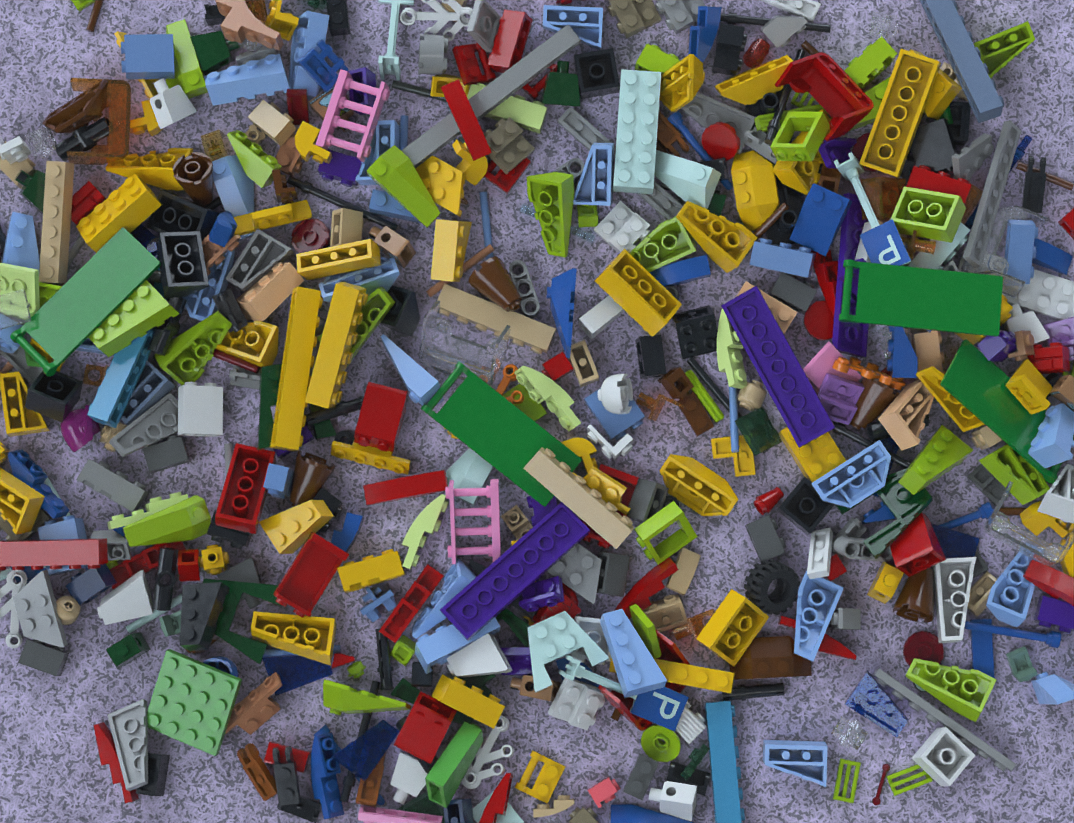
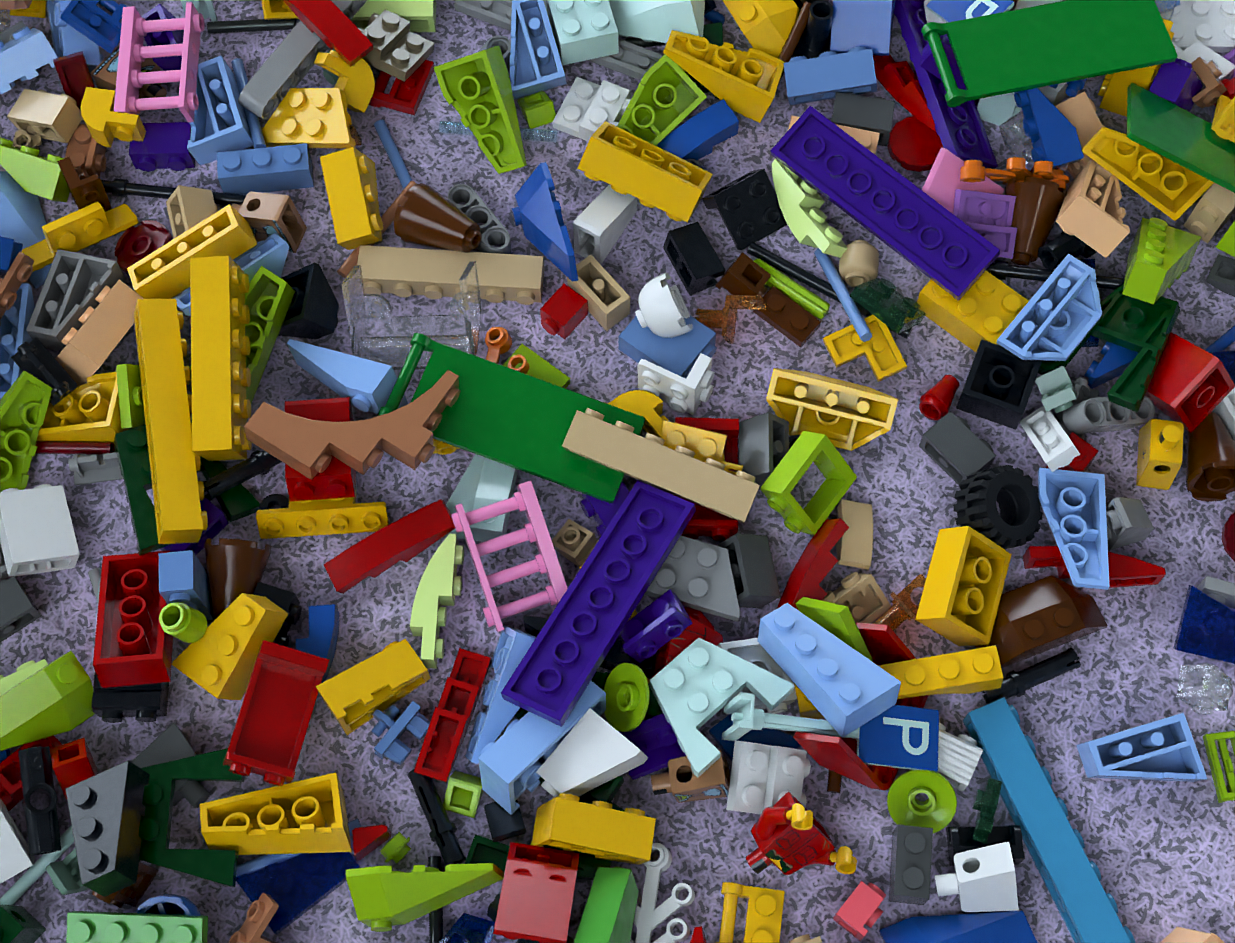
camera: 20 degrees left, 15 degrees down
(219, 564) = (113, 745): yellow brick -> none
(272, 505) = (183, 622): none -> lime brick
(277, 344) = (130, 396): none -> lime plate
(400, 179) = (257, 127): lime wedge -> none
(431, 428) = (359, 444): none -> nougat arch
(511, 631) = (626, 697): none -> lime dish
(543, 388) = (558, 342): yellowish green slope -> none
(580, 740) = (795, 839): none -> red torso
(838, 525) = (1056, 389): none -> sand green bracket

